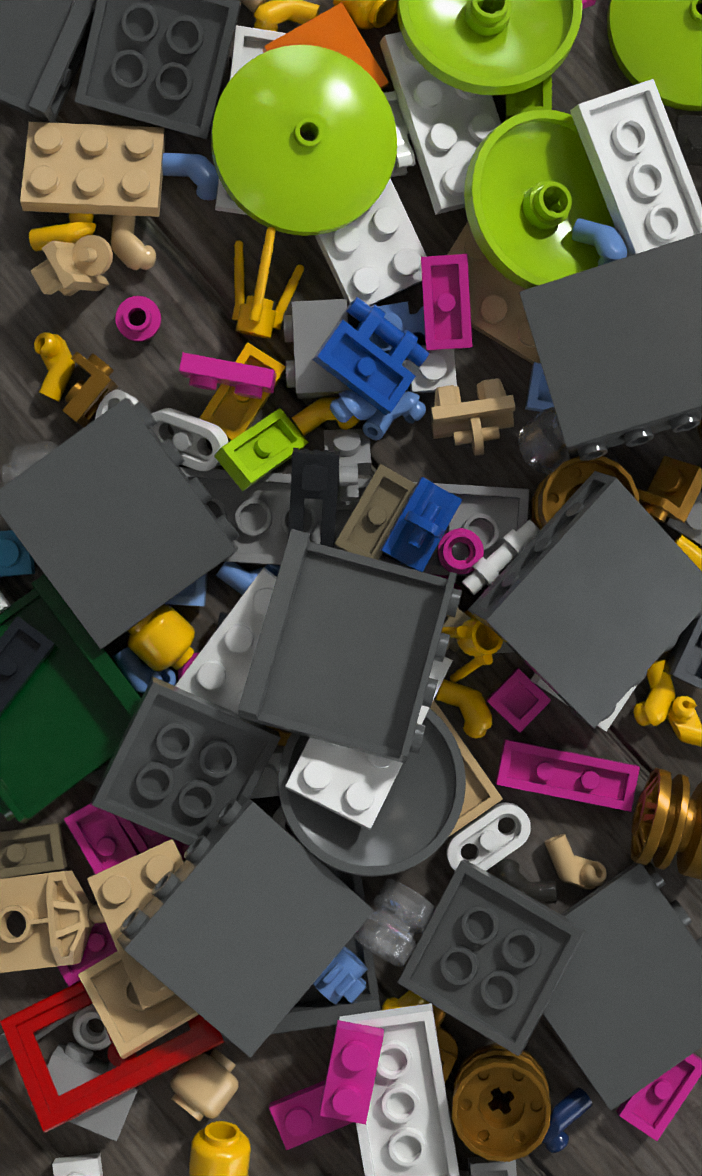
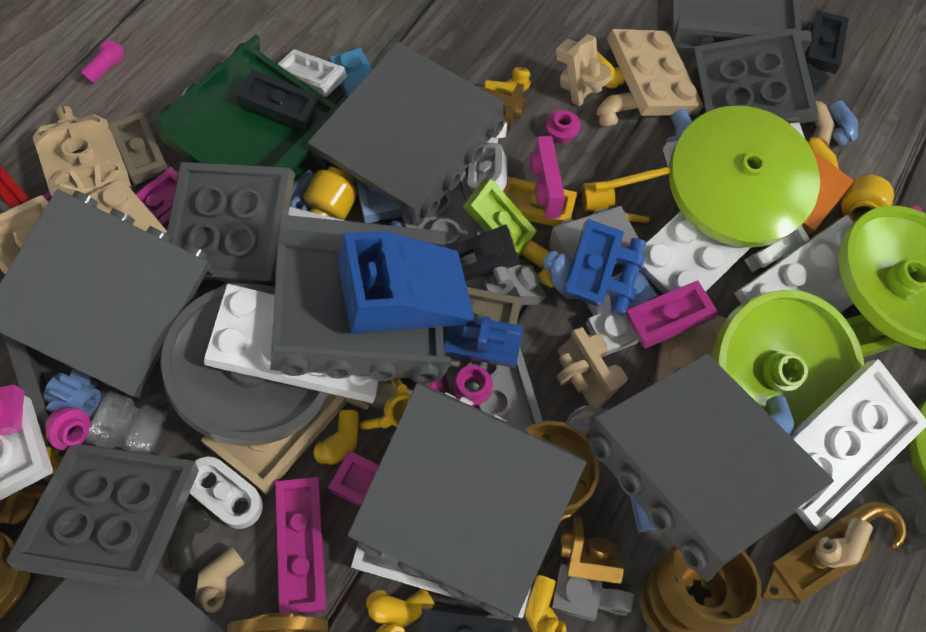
camera: 70 degrees right, 25 degrees down
(352, 595) = (401, 283): none -> blue slope
(381, 983) = (60, 423): none -> dark pink plate
(408, 407) = (566, 306): medium blue arm -> none

